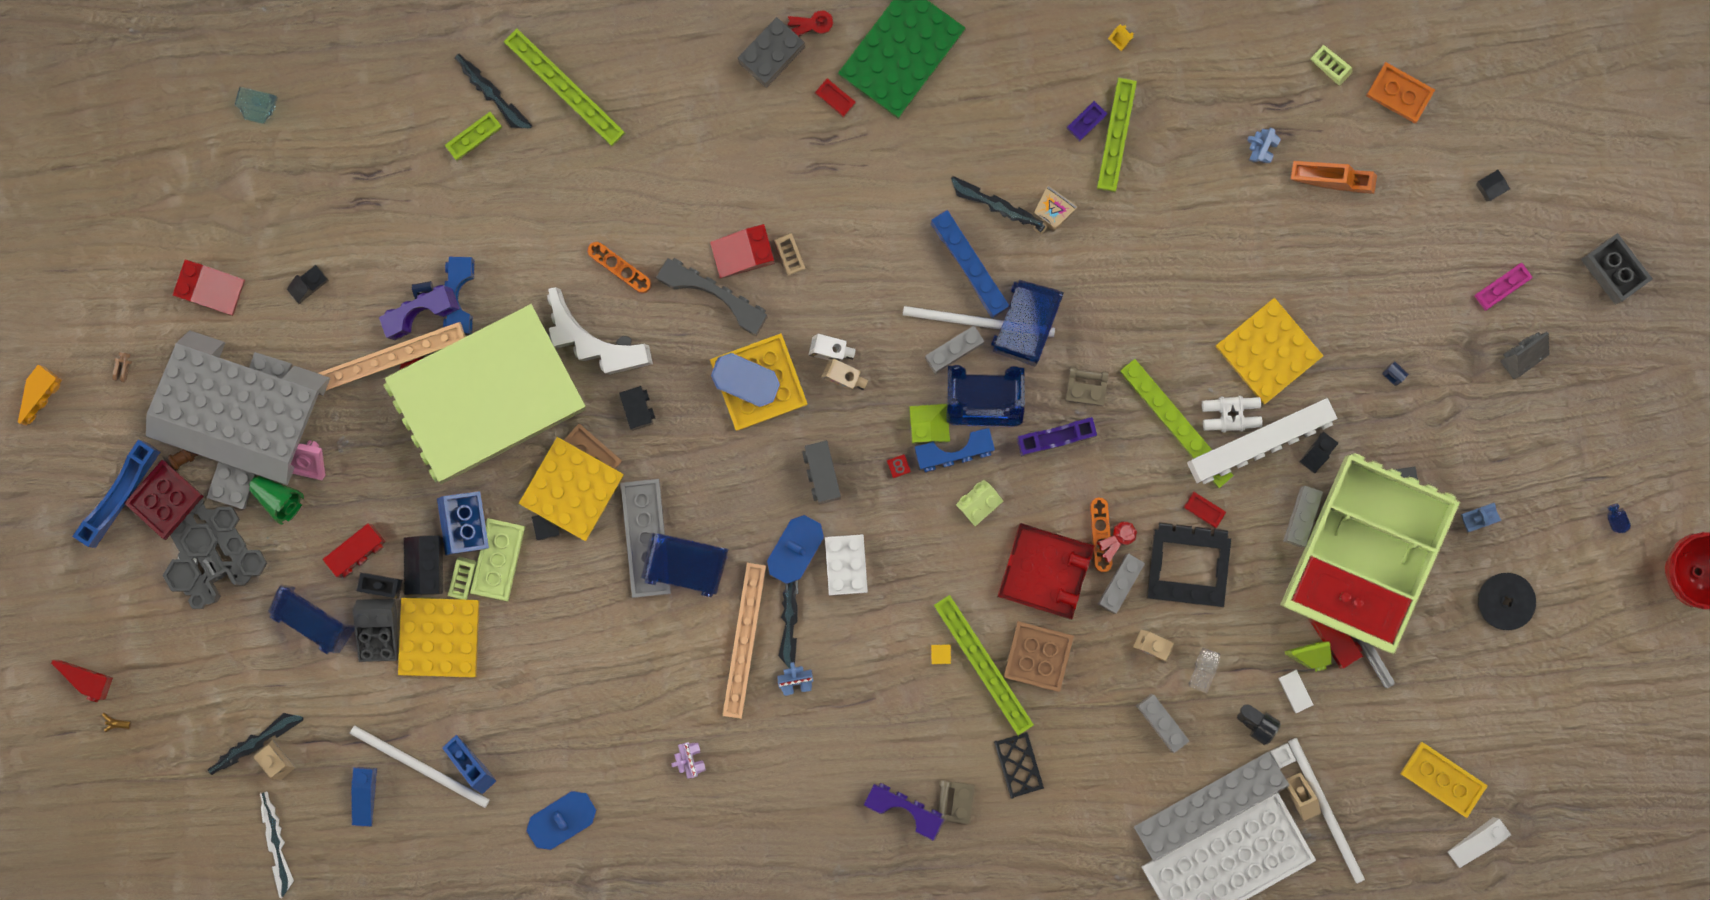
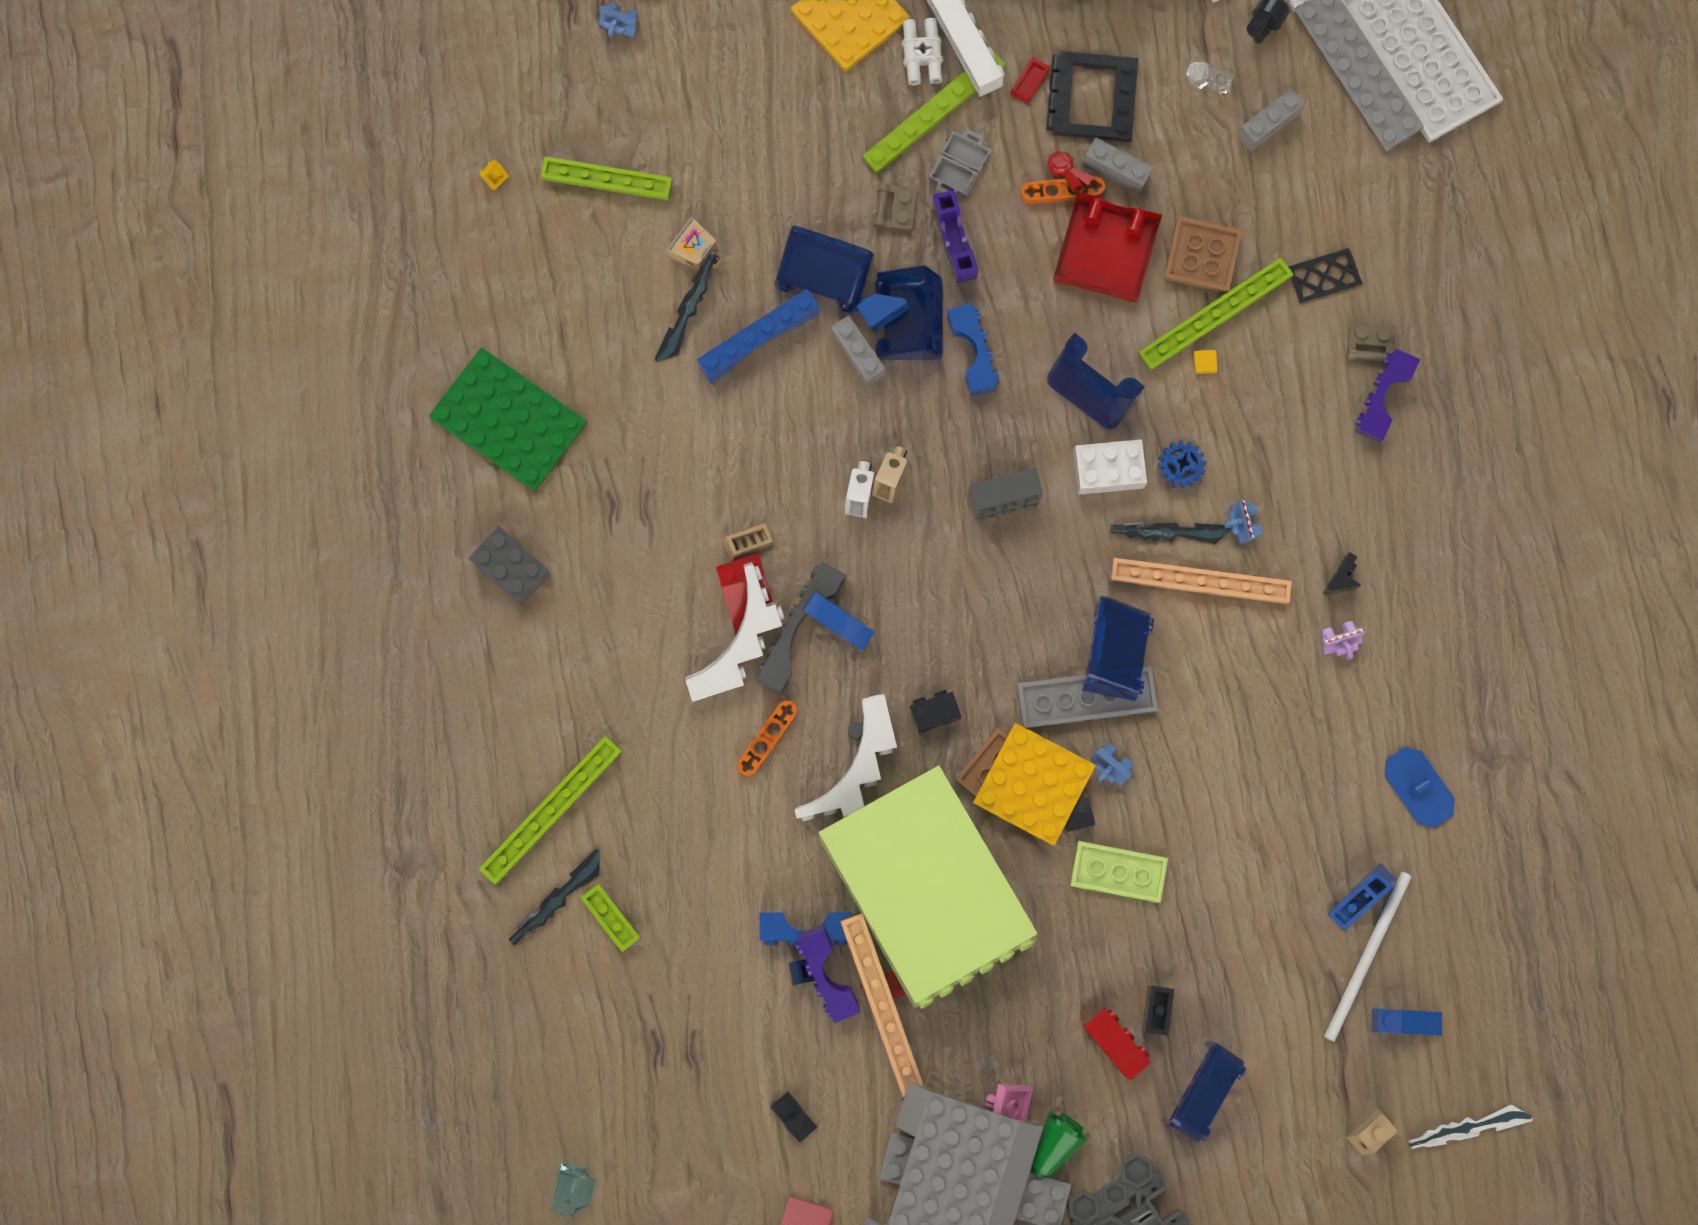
camera: 90 degrees left, 5 degrees down
(253, 743) = (1330, 1129): black sword -> none
(376, 629) = (1209, 1014): dark grey slope -> none
(423, 565) = (1130, 960): black slope -> none
(438, 637) = (1214, 939): yellow plate -> none
(462, 523) = (1079, 913): blue slope -> none
(465, 562) = (1124, 909): yellowish green slope -> none
(586, 552) = (1110, 767): none -> medium blue hips
(676, 234) = (724, 671): none -> white arch
(715, 328) = (838, 620): none -> blue slope
(739, 760) = (1340, 581): none -> black slope
(745, 379) = (900, 583): shield -> none
(774, 356) = (900, 572): yellow plate -> none
(795, 549) = (1093, 525): blue shield -> none
(820, 22) = (473, 512): red piece -> none
(835, 97) = (563, 493): red tile -> none
(835, 624) = (1174, 463): none -> blue gear
(898, 466) = (992, 412): red tile -> none
(923, 534) = (1089, 389): none -> clear blue windscreen
(929, 424) = (943, 380): lime slope -> none
(957, 318) = (819, 357): white piece -> none
(979, 502) = (1031, 322): yellowish green bracket -> none
(990, 369) = (881, 309): none -> blue slope
(1087, 121) = (590, 211): dark purple plate -> none
(1134, 447) = (960, 163): none -> light grey piece
(1154, 645) = (1186, 127): tan torso -> none

